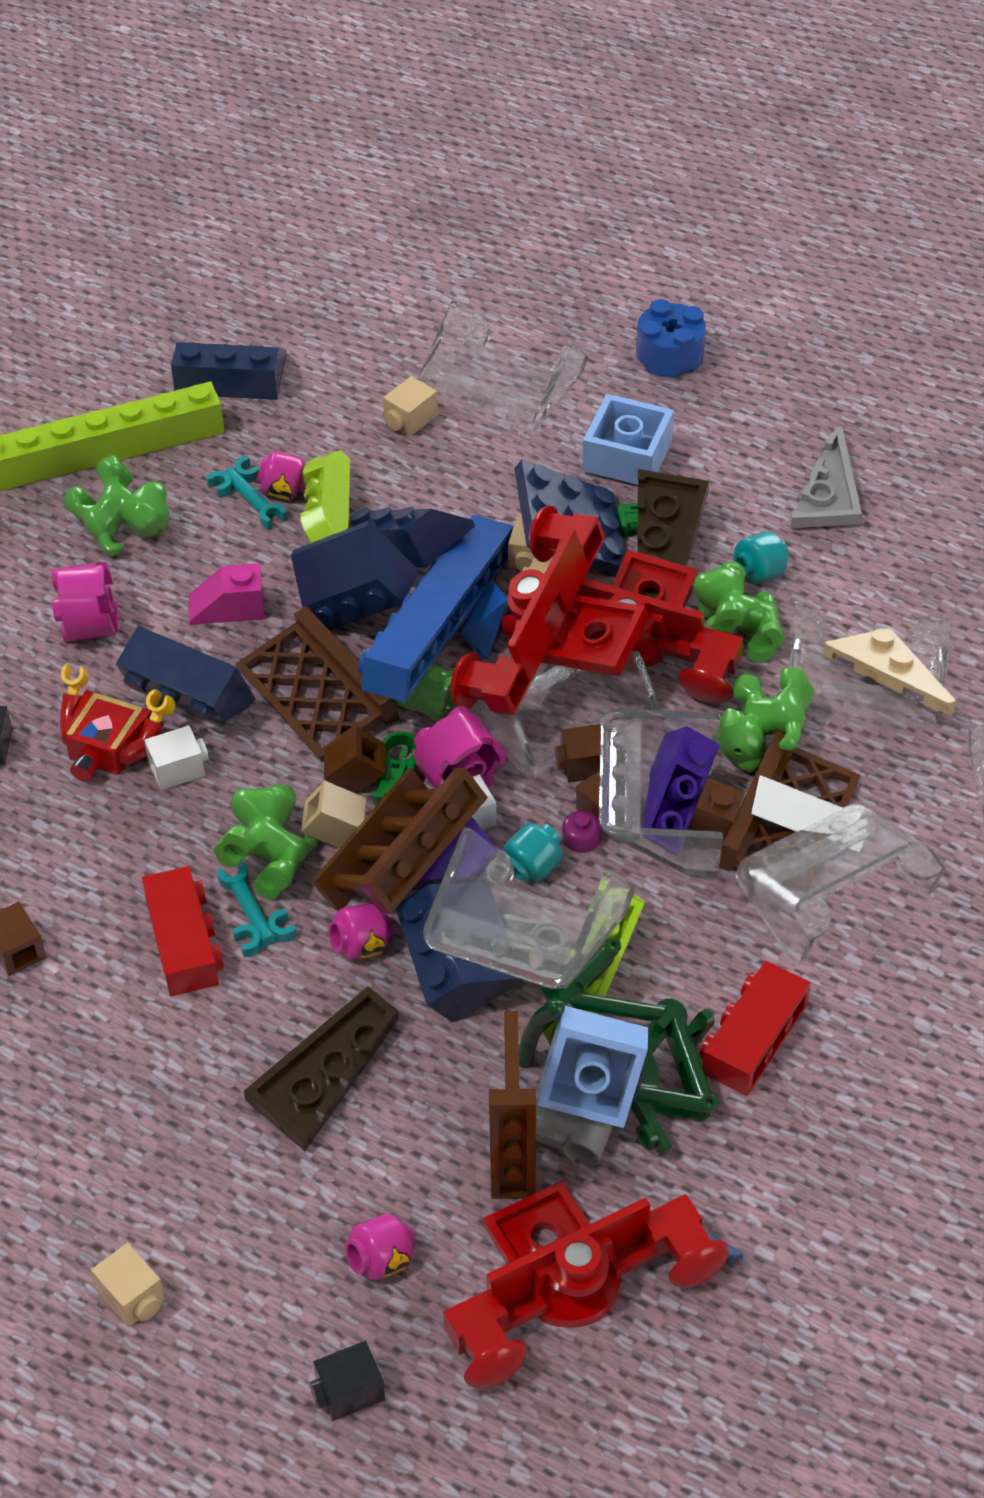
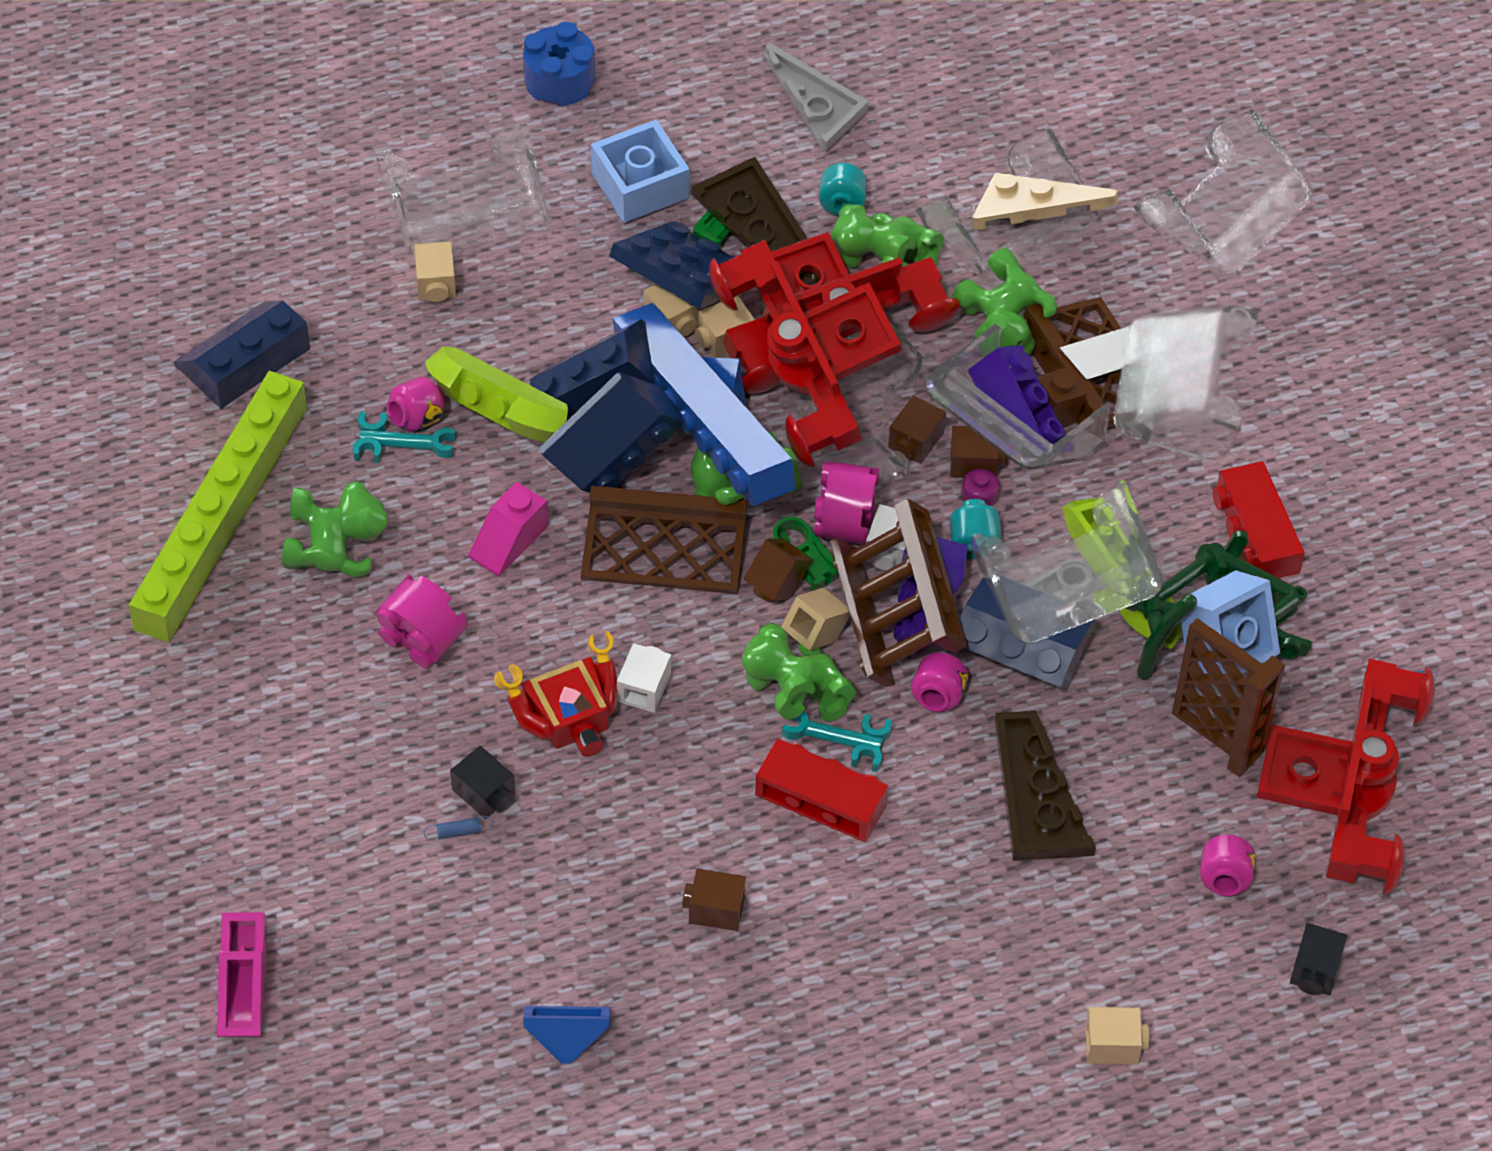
camera: 50 degrees left, 5 degrees up
(185, 674) = (580, 609): dark blue slope -> none

